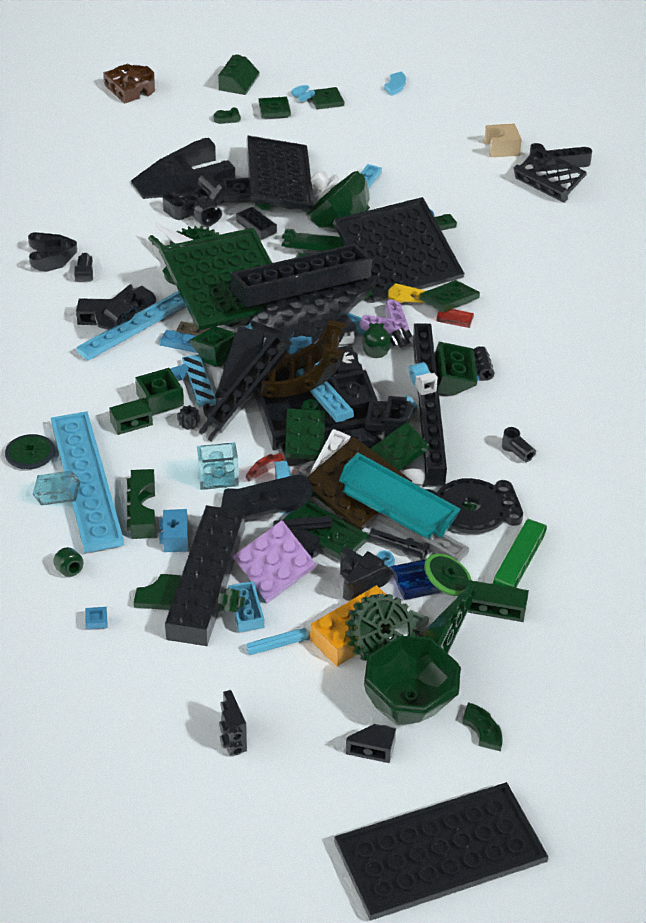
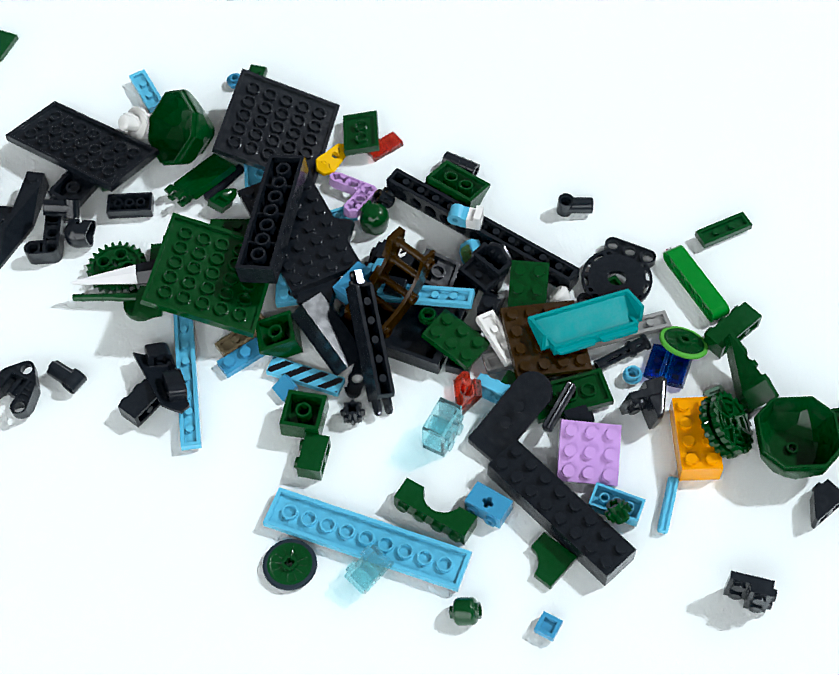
camera: 50 degrees left, 15 degrees up
(598, 548) = (723, 229): none -> dark green plate

